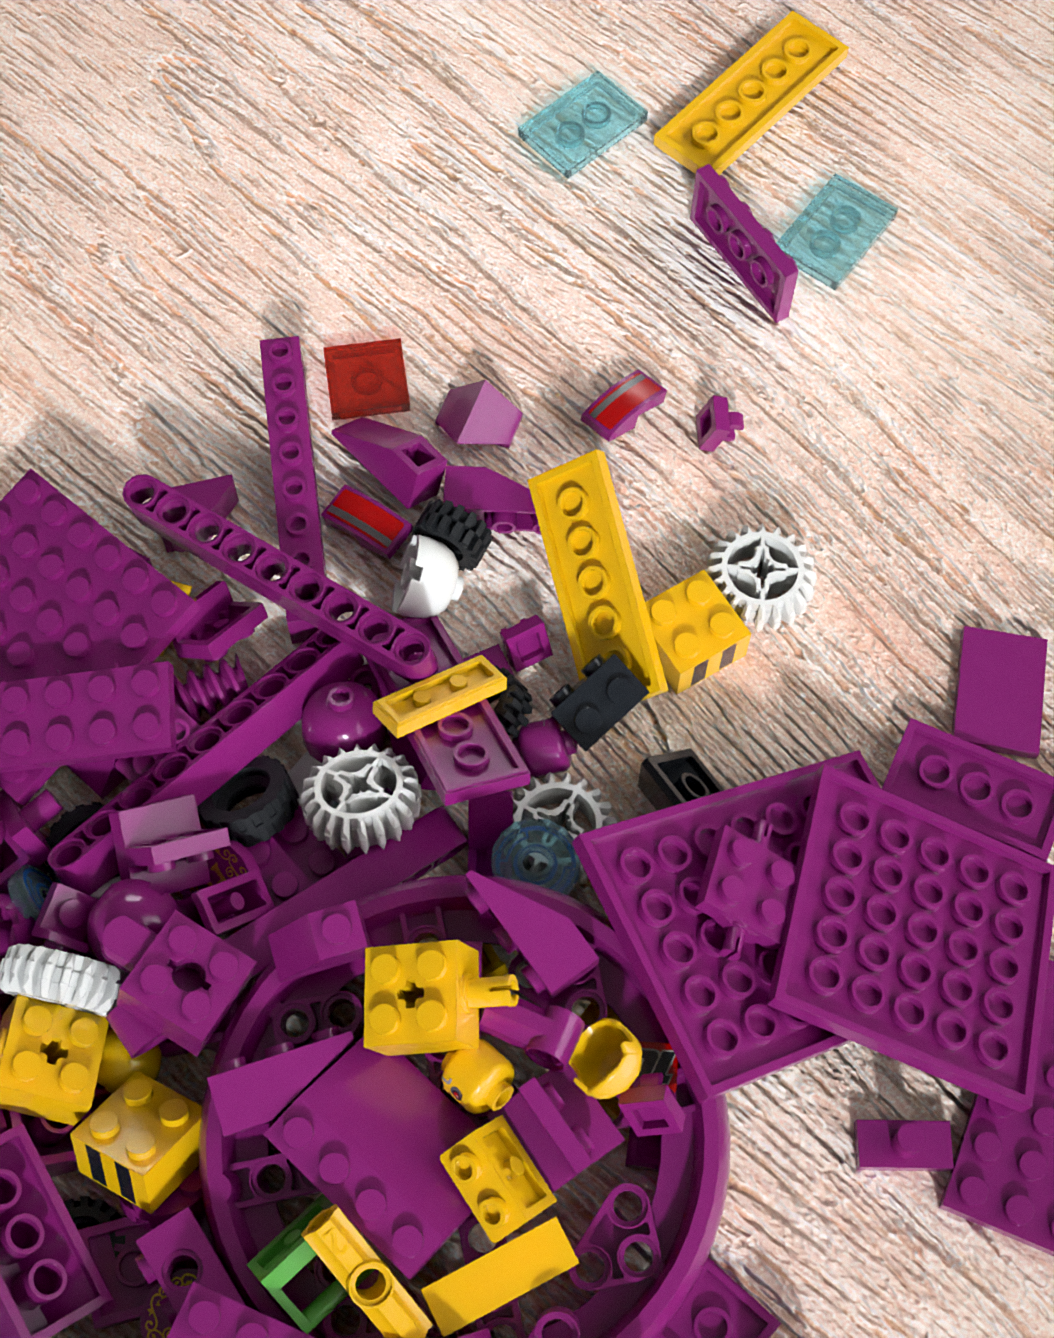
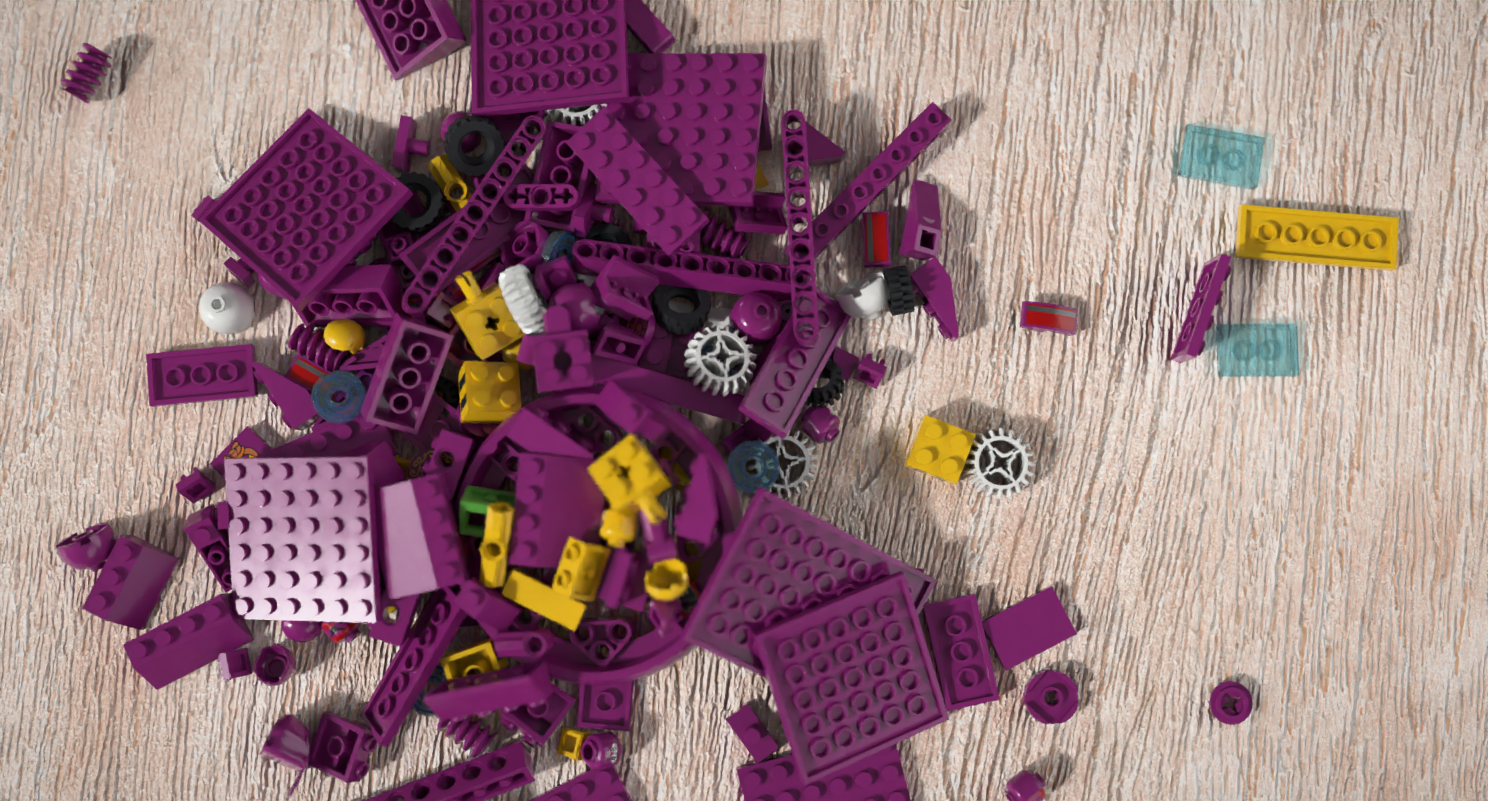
camera: 55 degrees right, 20 degrees up
(366, 379) = (961, 170): clear red tile -> none
(439, 696) = (798, 358): yellow tile -> none
(479, 415) = (980, 247): magenta slope -> none
(595, 568) = (924, 386): yellow plate -> none
(596, 700) = (858, 433): black bracket -> none
(676, 779) = (852, 509): black slope -> none
(717, 423) = (1075, 375): magenta tile -> none
(747, 889) = (804, 583): magenta plate -> none

